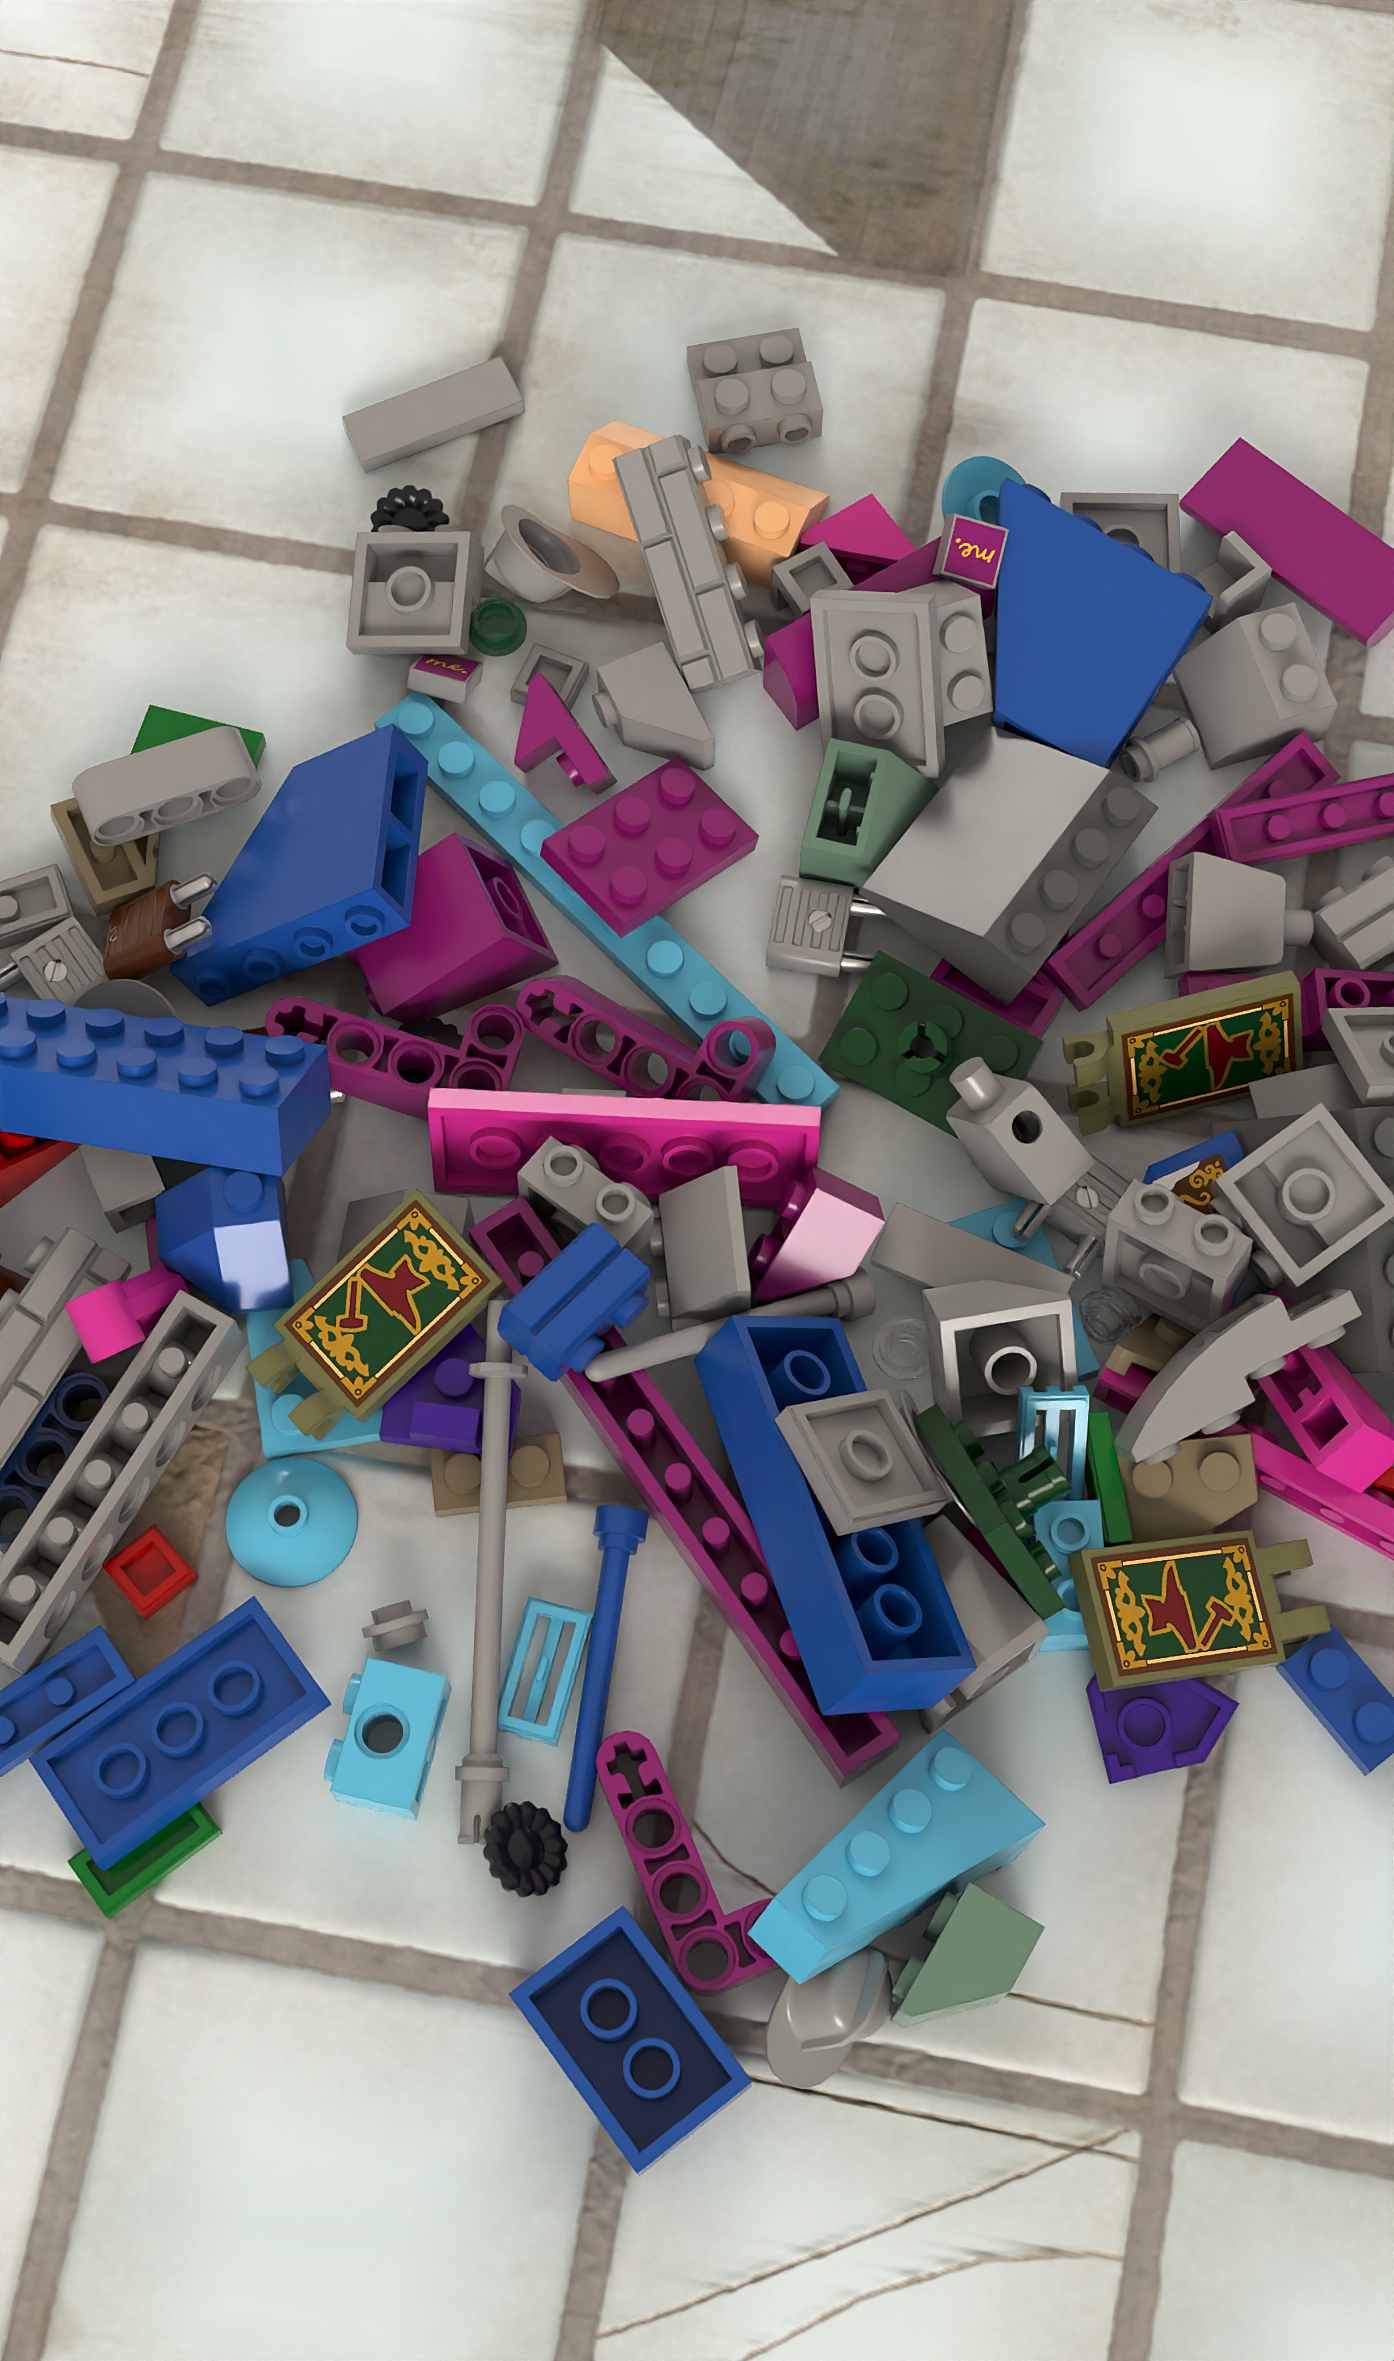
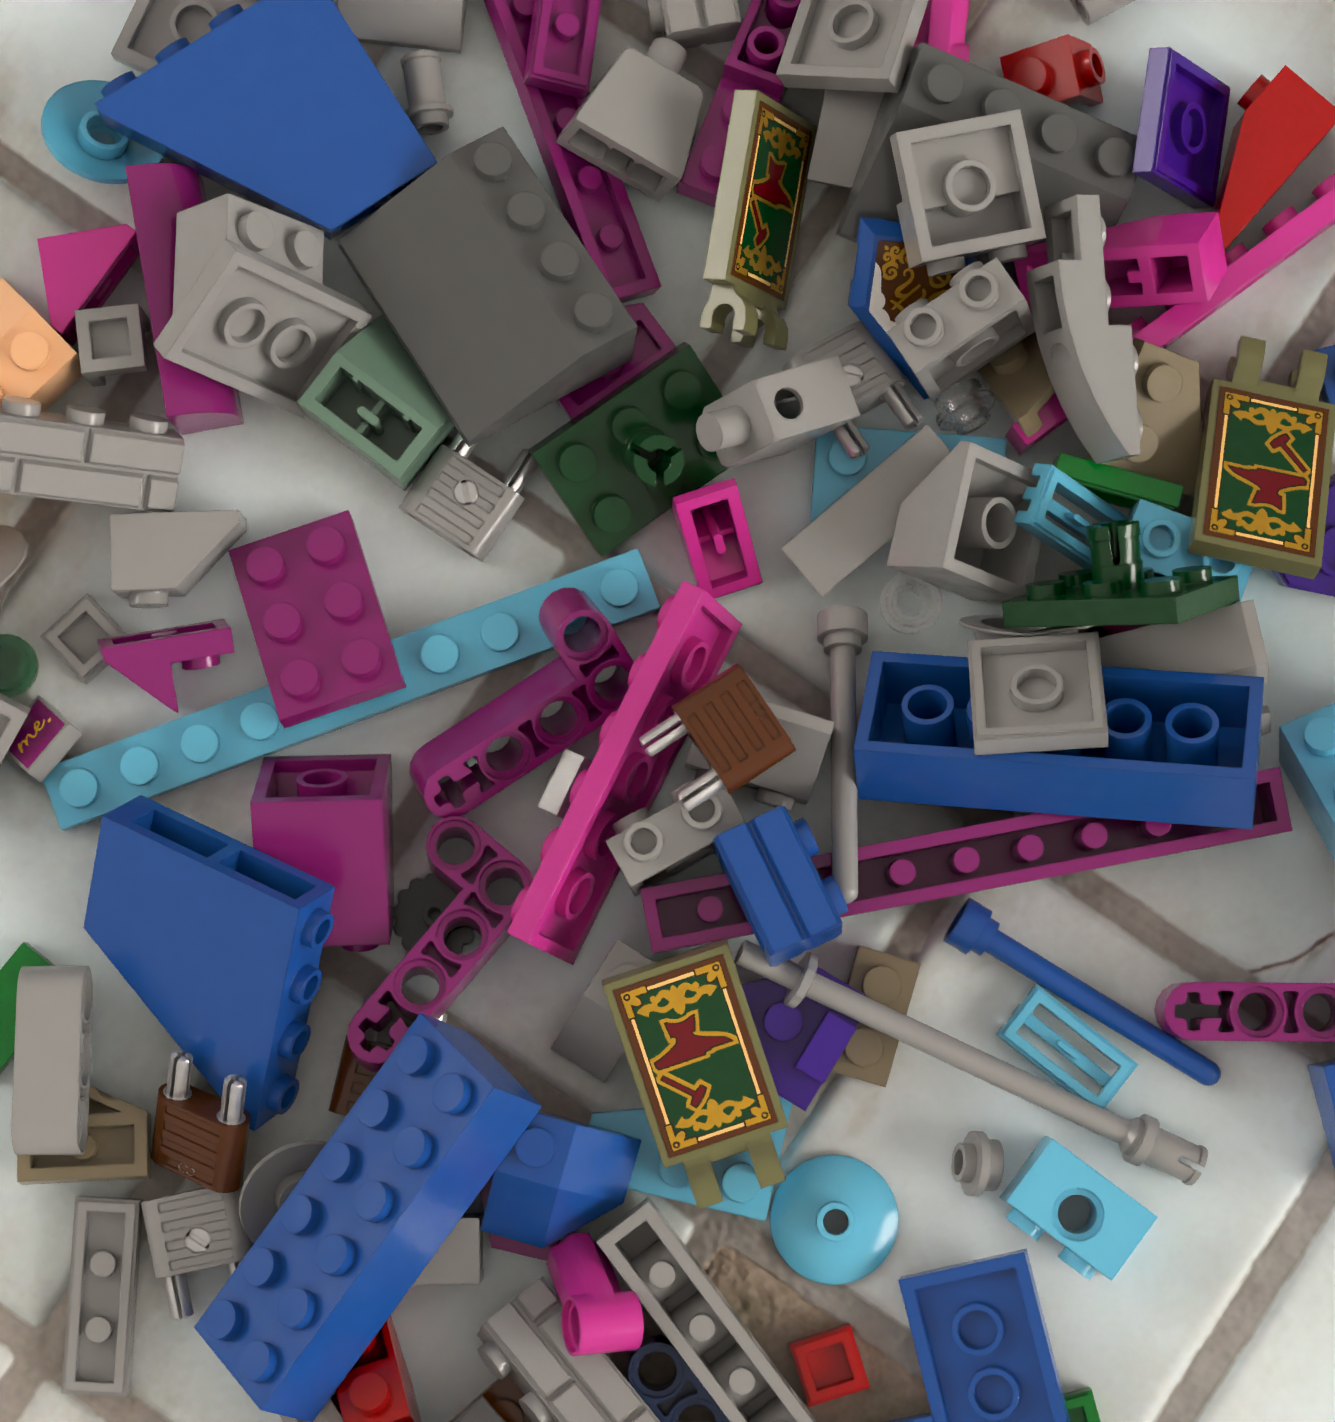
camera: 70 degrees left, 15 degrees up
(525, 1849) = (1221, 1128): black piece -> none
(697, 1194) = (730, 731): none -> reddish brown piece
(818, 1237) = (784, 635): slope -> none
(884, 1141) = (717, 538): none -> dark pink slope
(970, 551) = (163, 176): magenta tile -> none

